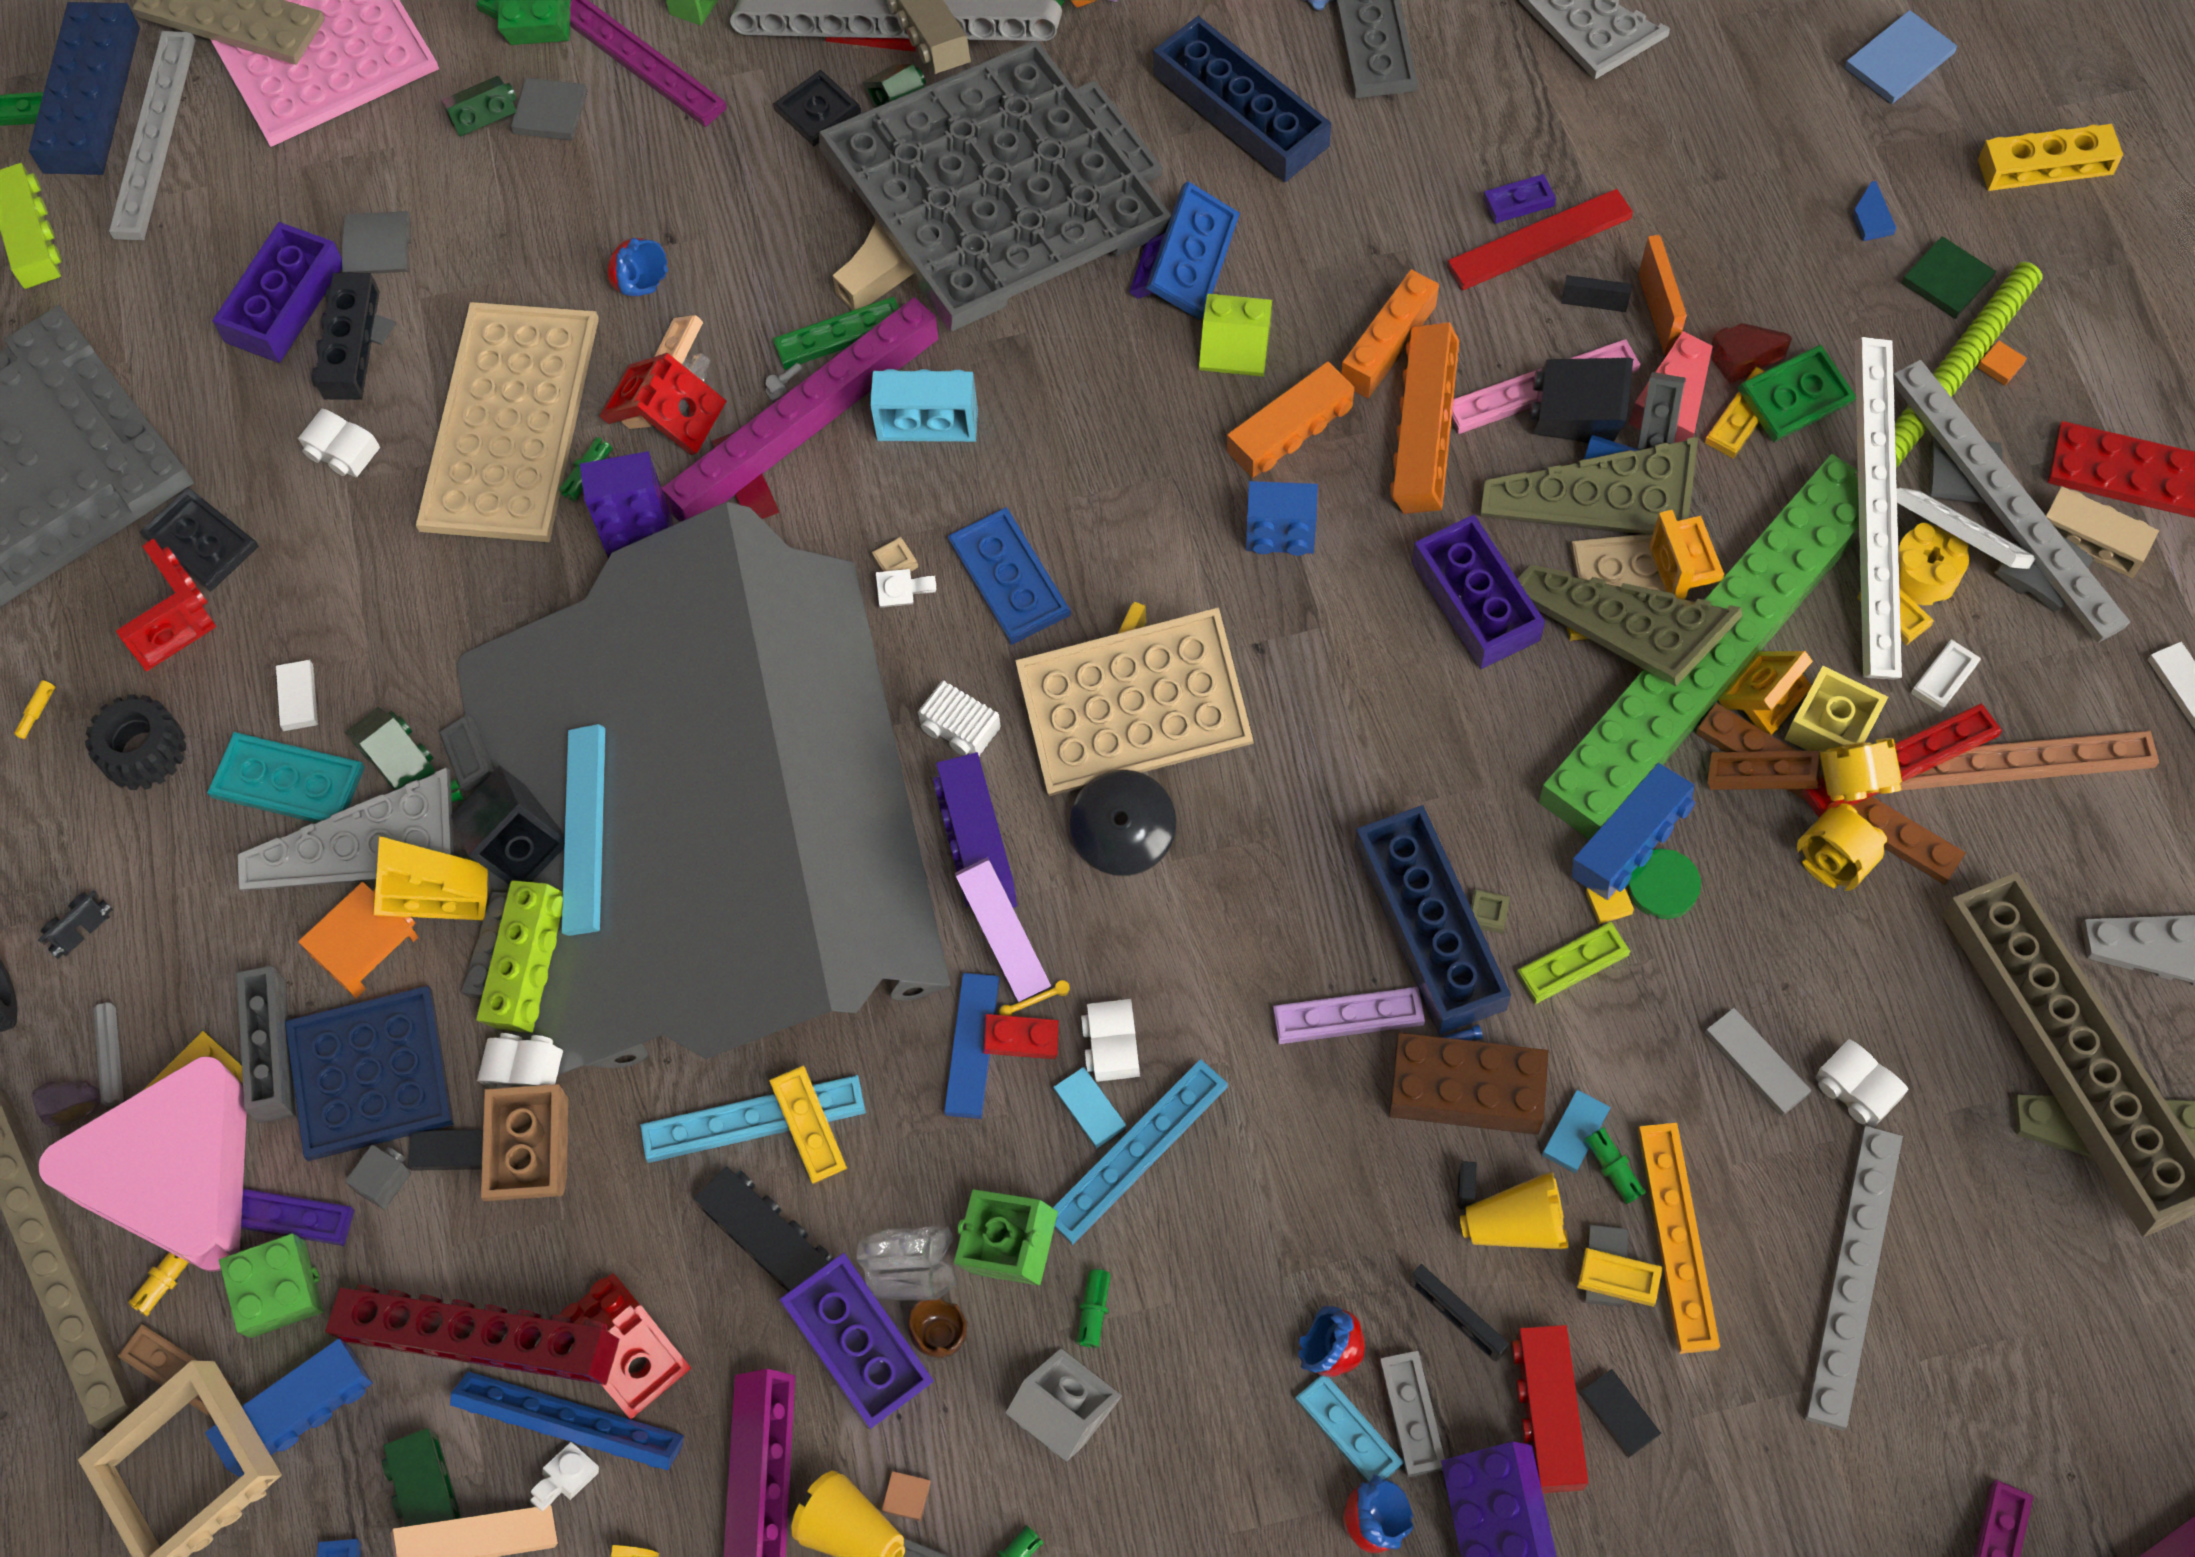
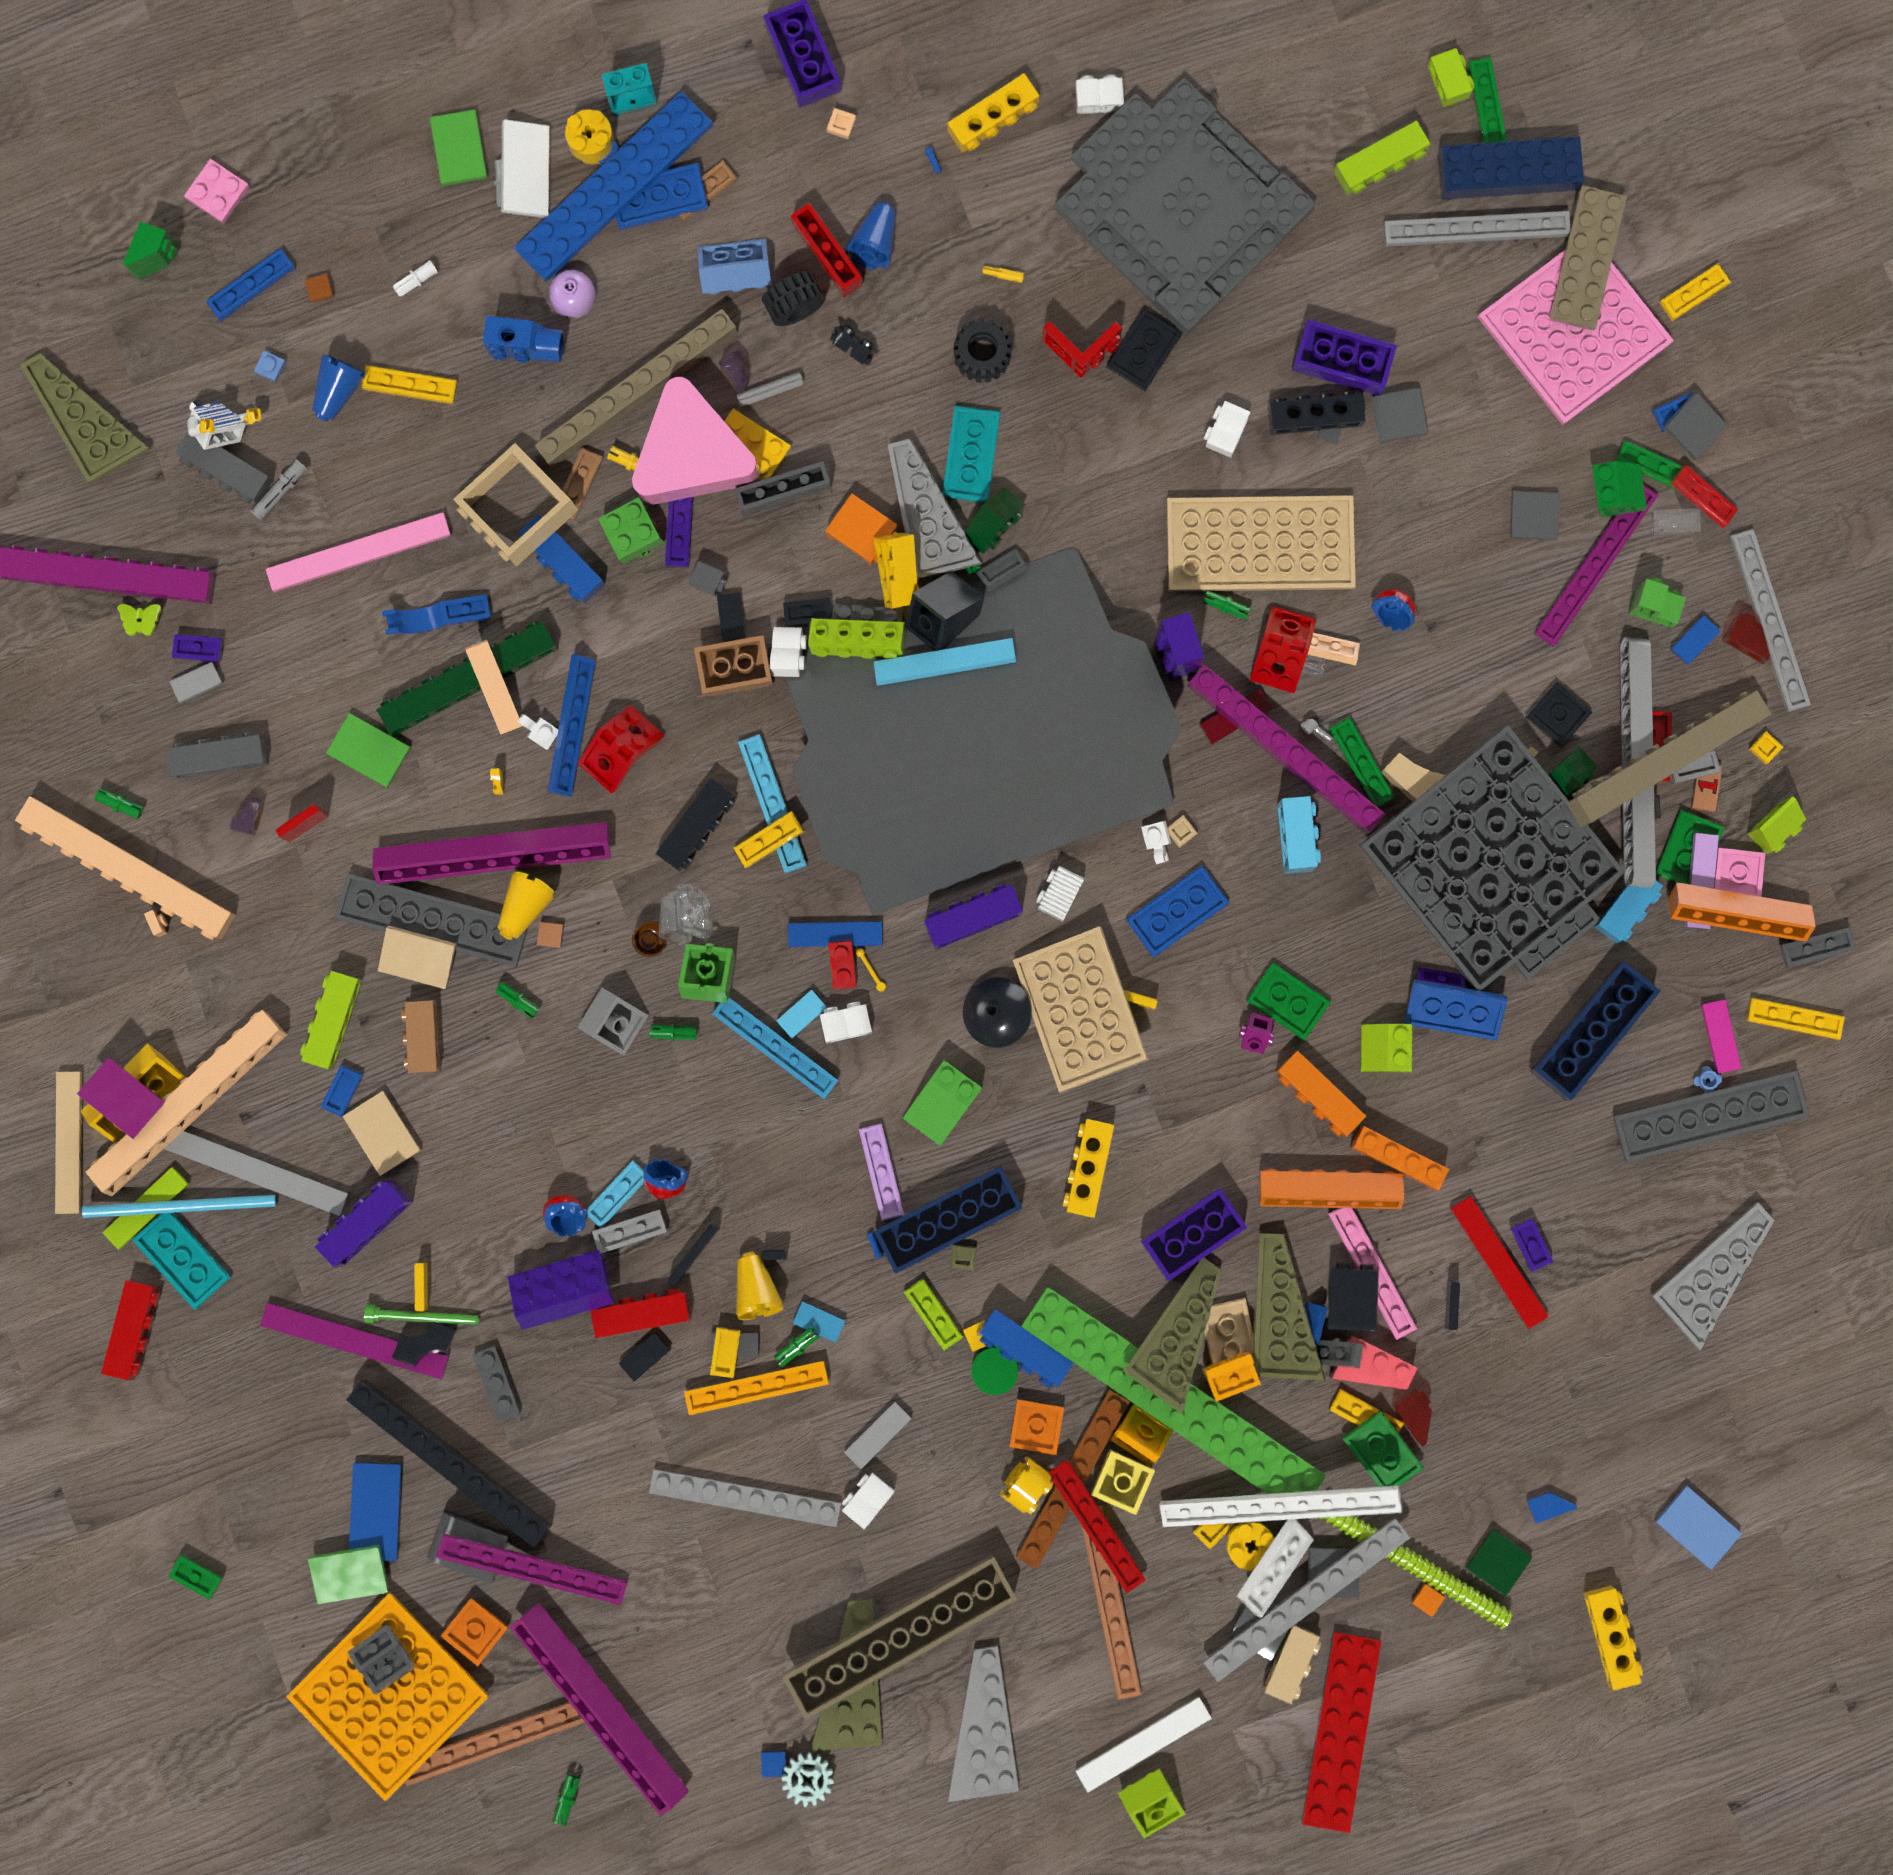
camera: 80 degrees right, 20 degrees up
(296, 695) = (1033, 446): white tile -> none
(368, 1073) = (774, 557): dark blue plate -> none
(380, 1322) = (614, 585): dark red brick -> none
(464, 1034) = (802, 612): none -> black plate
(480, 105) = (1526, 465): dark green brick -> none
(855, 1341) = (631, 891): dark purple brick -> none
(1002, 929) = (905, 944): lavender tile -> none
(1086, 54) = (1627, 910): none -> dark azure brick
(1155, 451) = (1288, 1001): none -> green tile
(1196, 484) = (1257, 1033): none -> magenta brick
(1249, 912) = (942, 1103): none -> bright green slope
(1281, 517) = (1233, 1094): blue brick -> none
(1356, 706) = (1088, 1205): none -> yellow brick
(1469, 1083) = (840, 1252): reddish brown brick -> none
(1661, 293) = (1450, 1352): orange tile -> none
(1750, 832) = (1036, 1426): none -> orange plate
(1764, 770) = (1078, 1434): dark orange plate -> none
(1861, 769) = (1072, 1494): yellow brick -> none
(1945, 675) = (1170, 1557): white tile -> none

